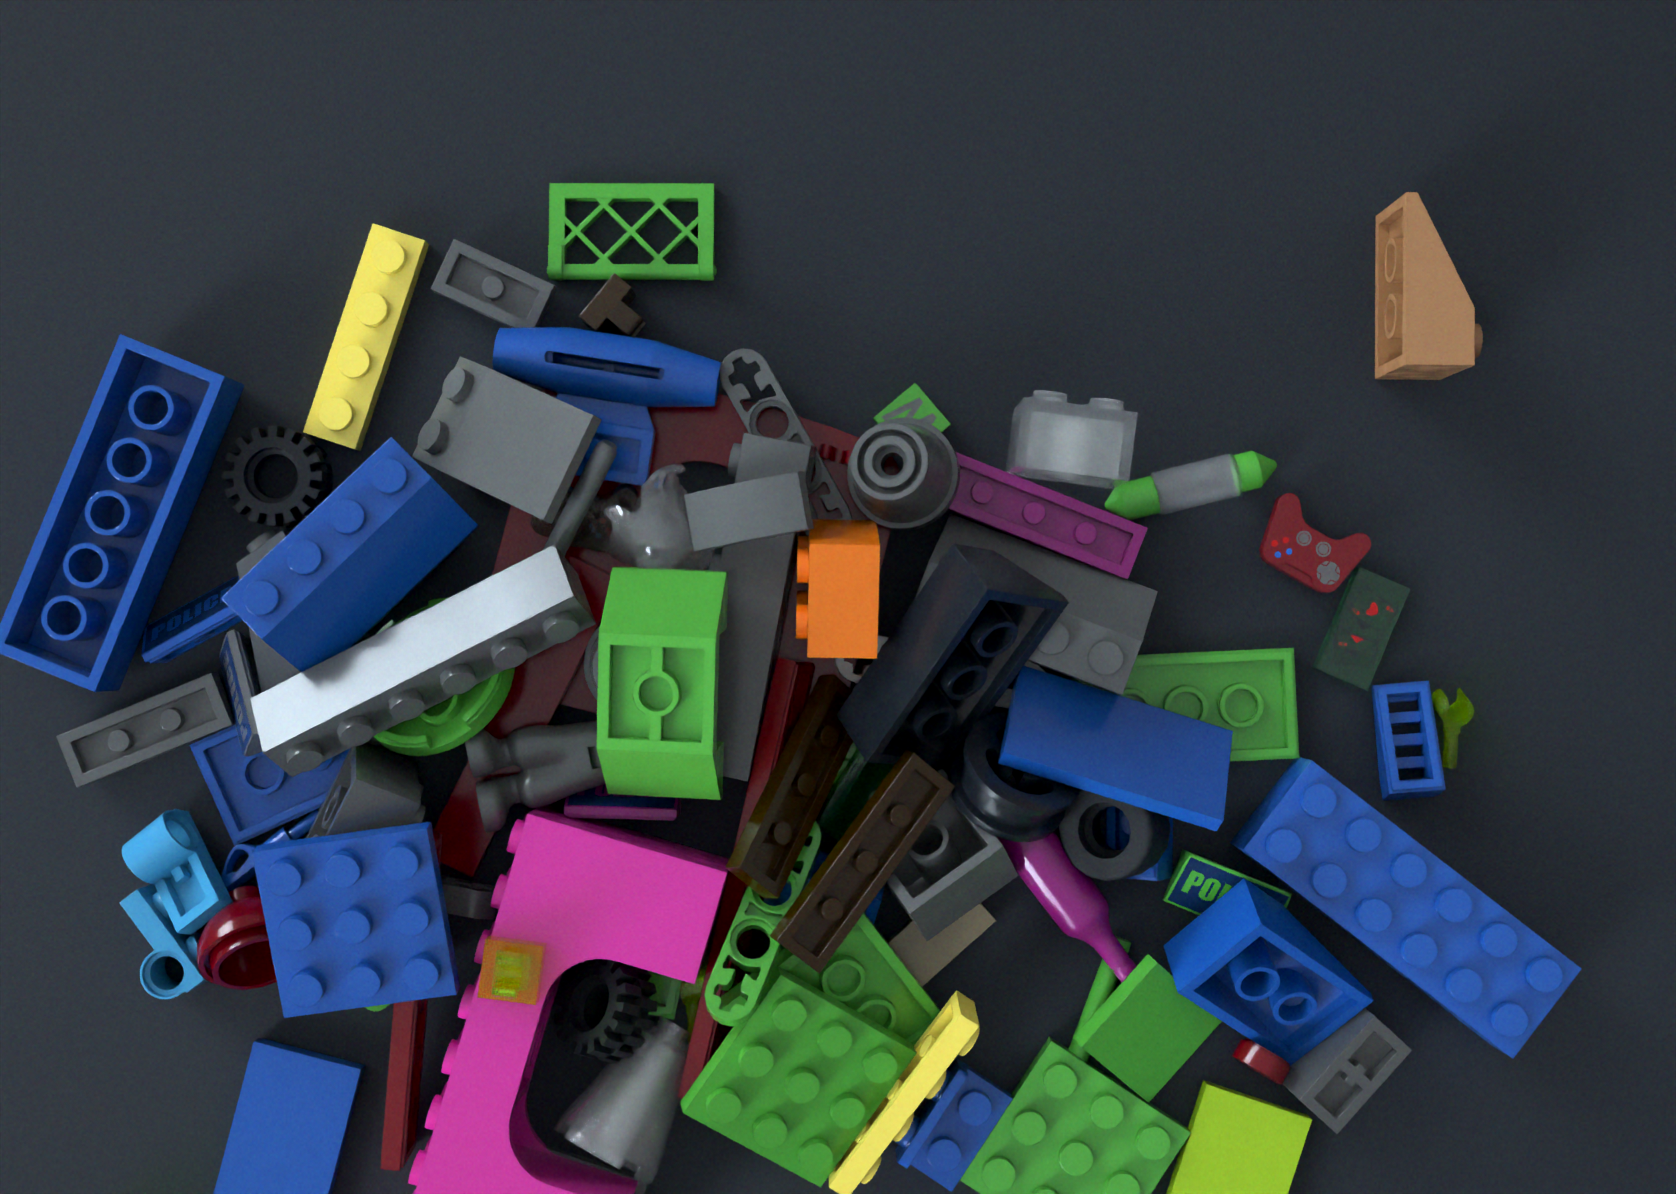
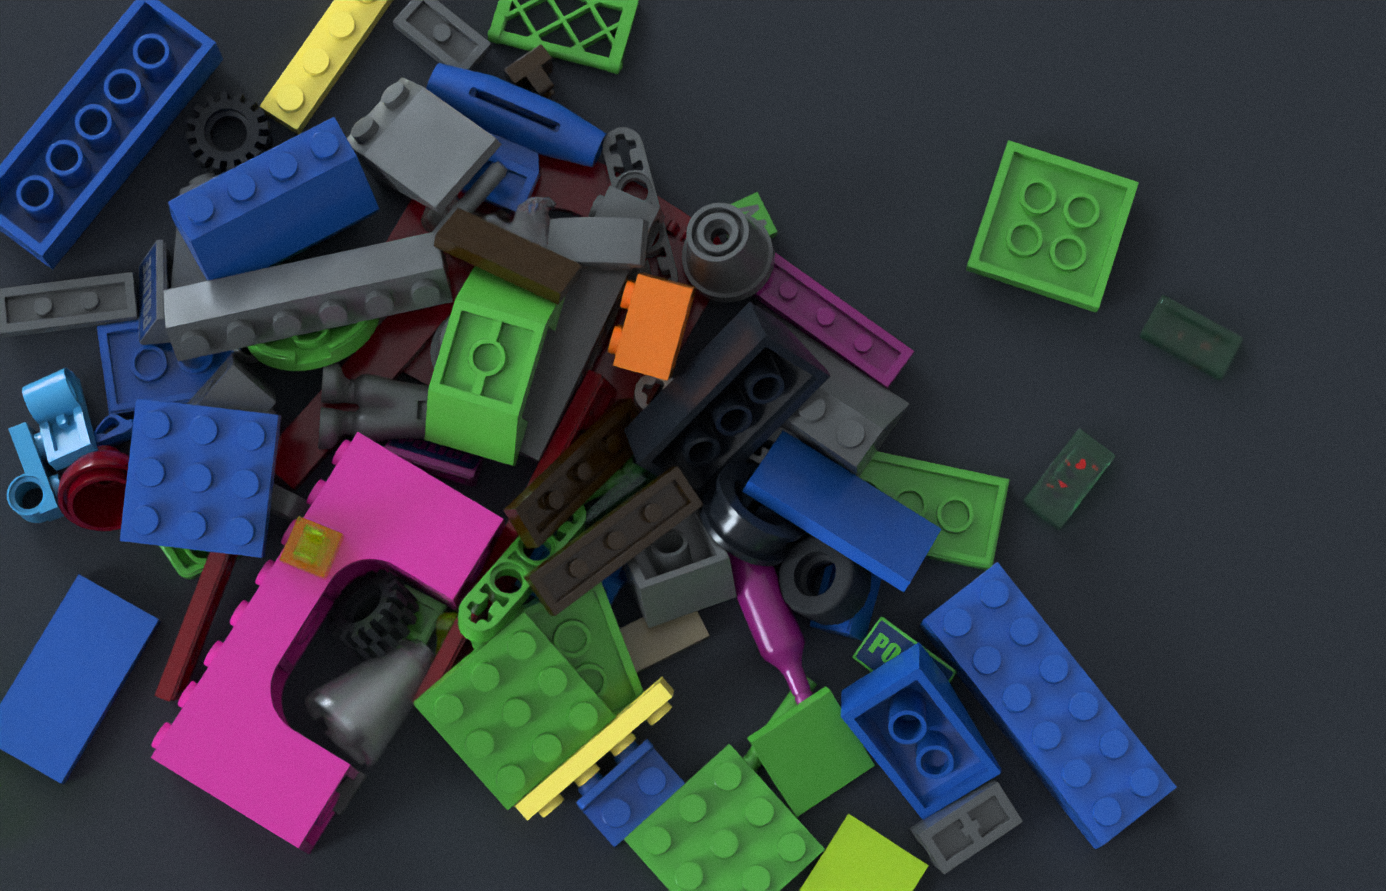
camera: 15 degrees right, 10 degrees down
(189, 625) = (130, 233): blue slope -> none
(646, 558) = (508, 255): none -> dark brown tile
(1072, 441) = (867, 263): clear brick -> none
(1191, 485) = (958, 329): piece -> none
(1262, 1060) = (898, 805): dark red tile -> none
(1270, 333) = (1052, 226): none -> bright green plate
(1305, 552) = (1038, 405): dark red piece -> none
(1420, 302) = (1176, 230): medium nougat slope -> none
(1430, 760) = (1078, 608): blue slope -> none
(1453, 717) = (1124, 573): clear neon green hand -> none
(1461, 422) = (1191, 337): none -> clear green tile

